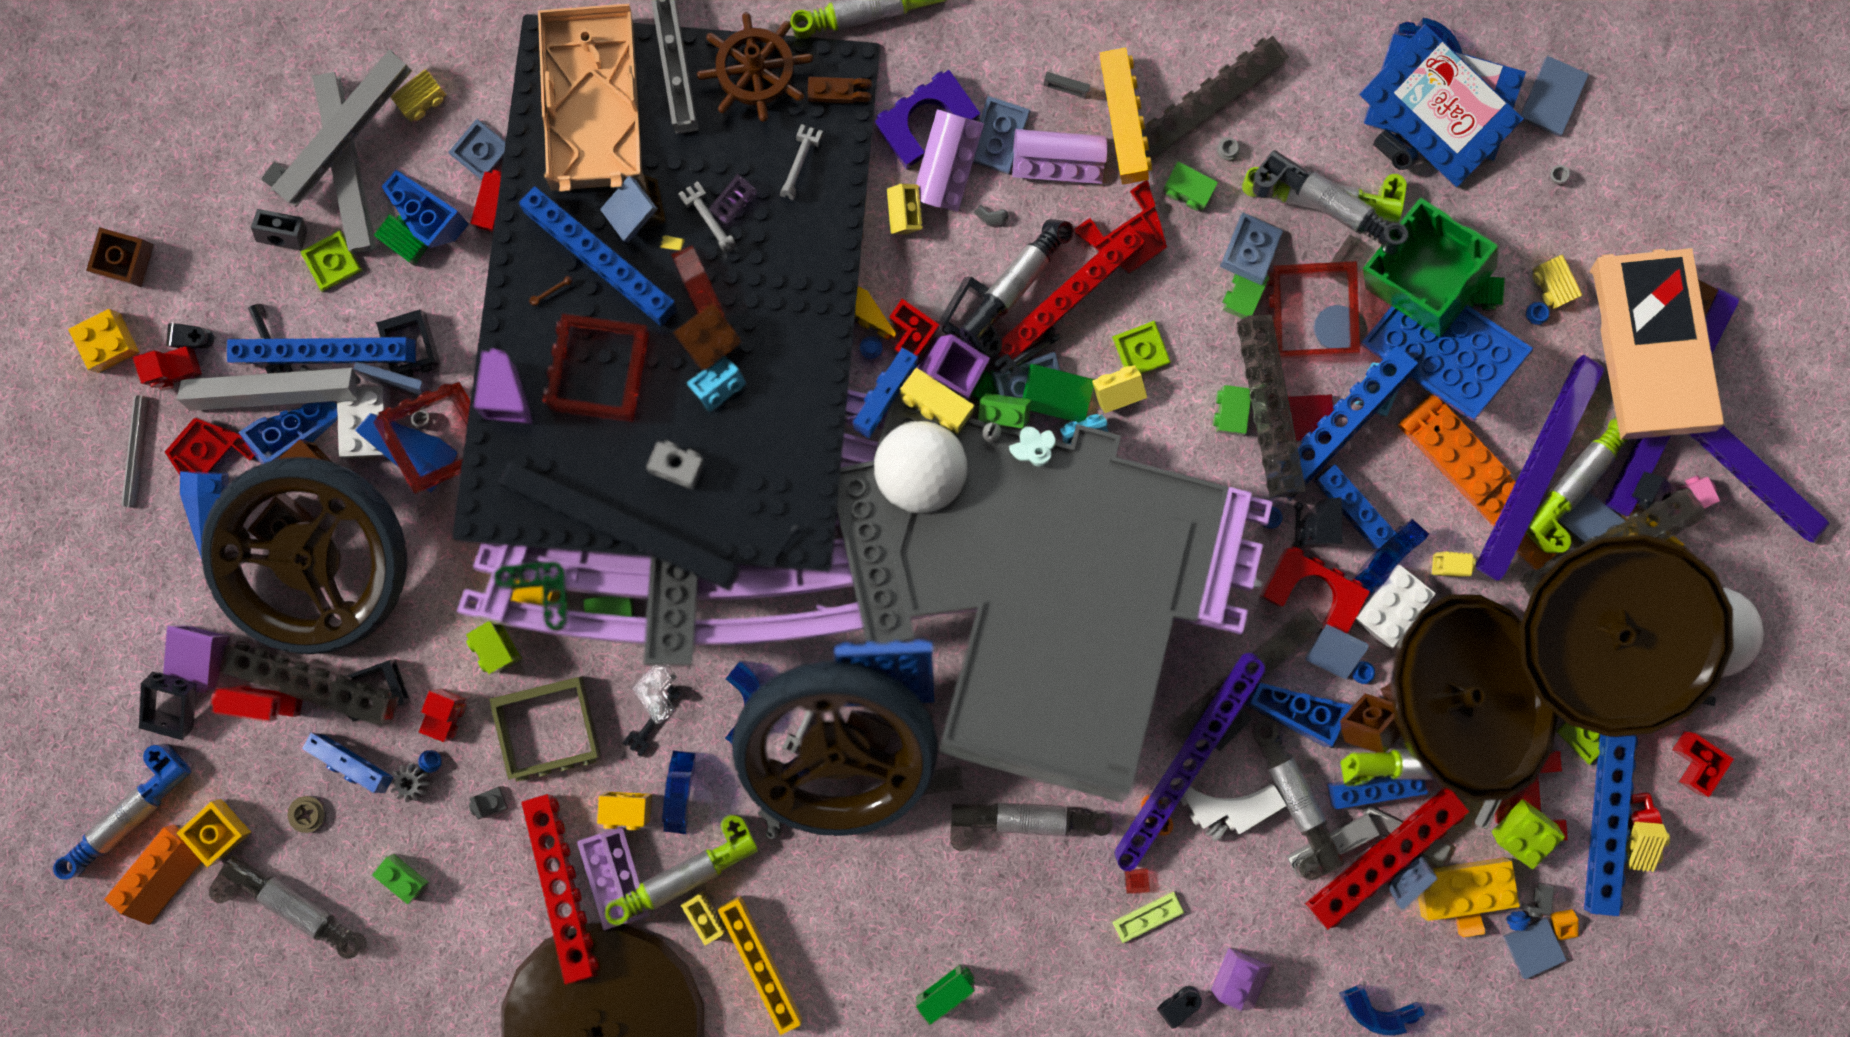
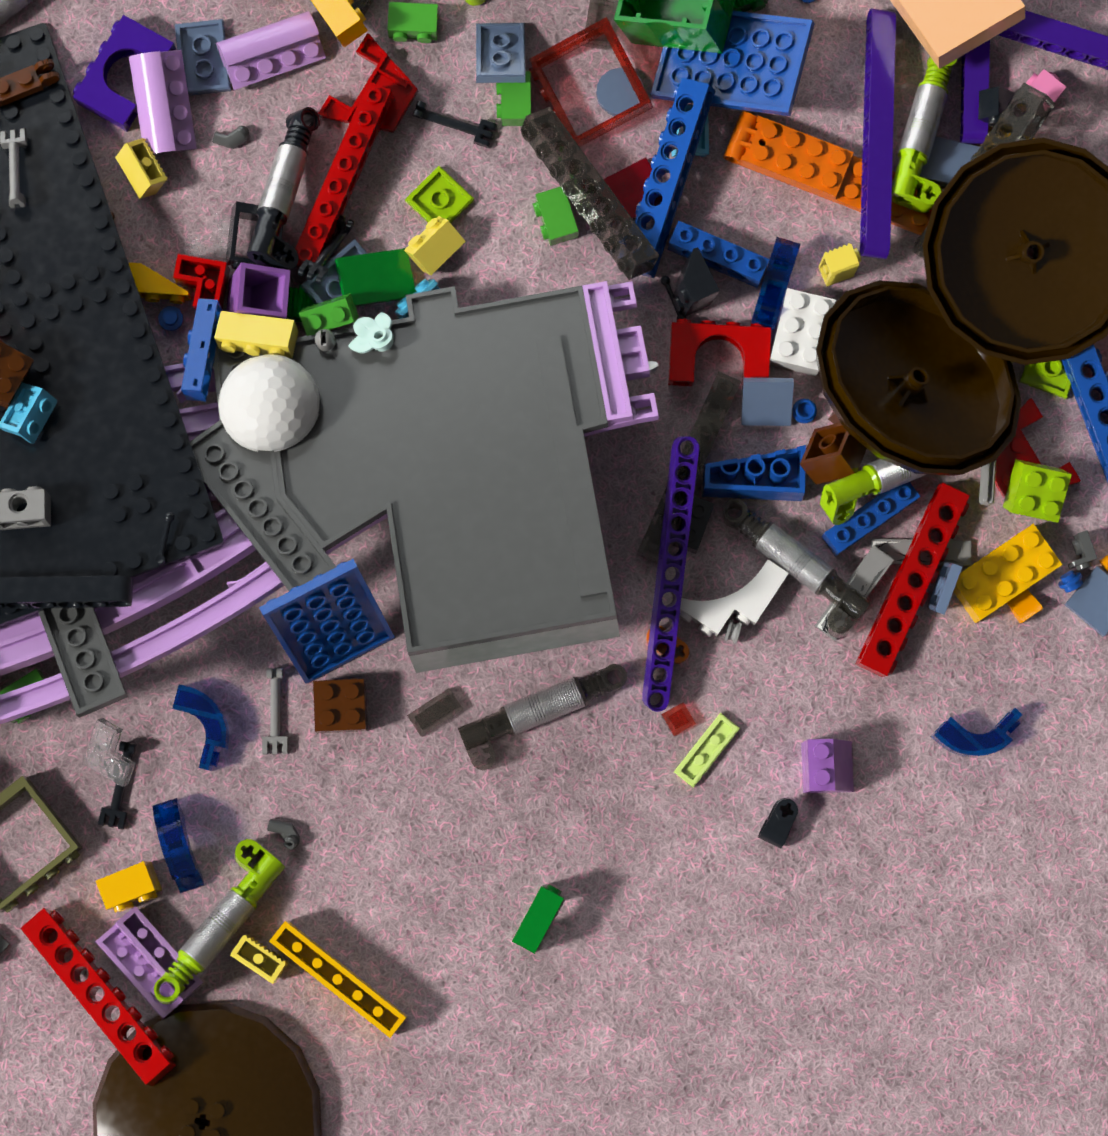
camera: 30 degrees left, 5 degrees down
(835, 749) = (266, 784): dark brown wheel -> none
(1202, 307) = (479, 132): none -> black hinge
(1275, 518) = (645, 303): blue plate -> none

